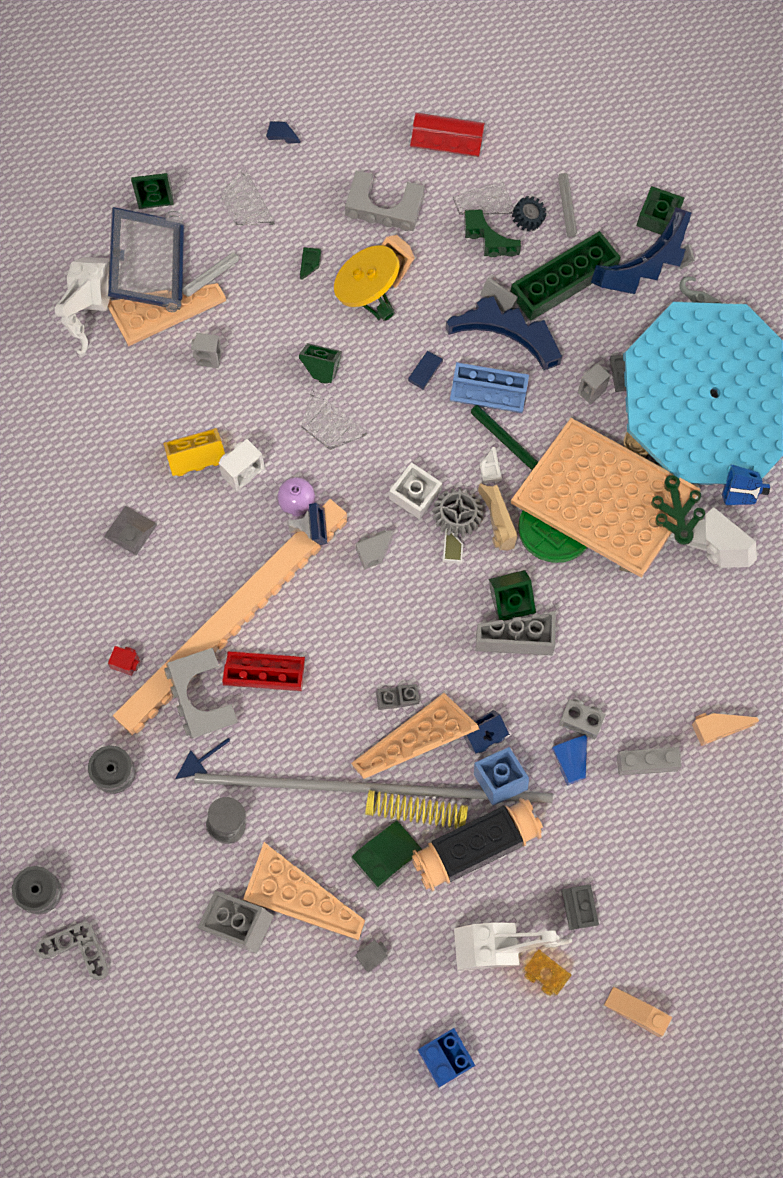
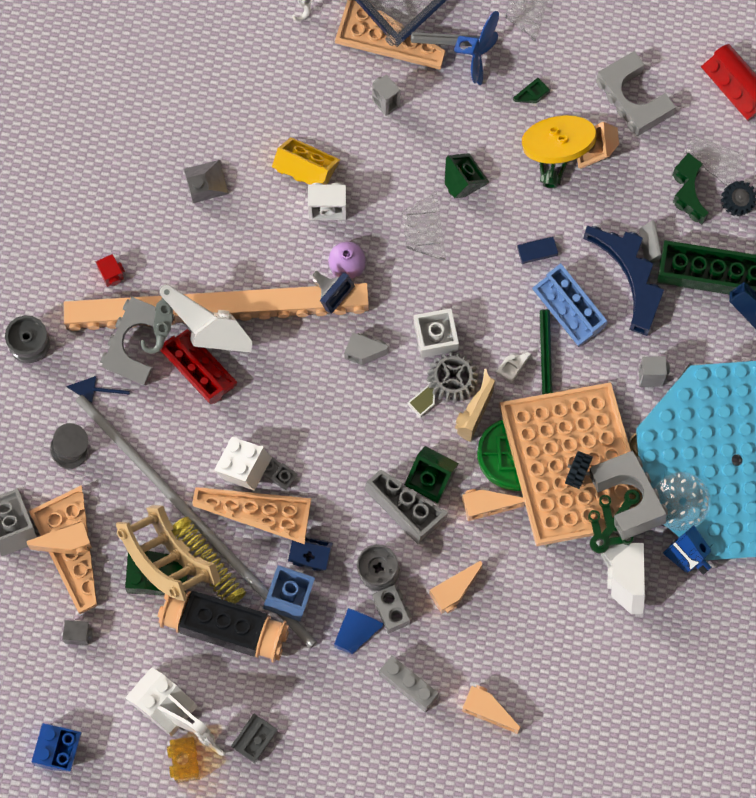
camera: 45 degrees right, 0 degrees up
(240, 257) = (480, 46): none -> blue piece
(246, 636) = (207, 328): none -> white slope
(297, 894) = (66, 540): none -> light nougat slope
(371, 712) = (243, 463): none -> white brick
(391, 822) = (179, 552): none -> tan fence
(550, 687) = (372, 558): none -> flat silver wheel
(570, 581) = (487, 503): none -> light nougat slope
(612, 664) = (451, 591): none -> light nougat slope
(619, 495) = (578, 470): none -> black wheel
(653, 465) = (628, 470): none -> light grey arch
(698, 462) = (697, 497): none -> clear dish

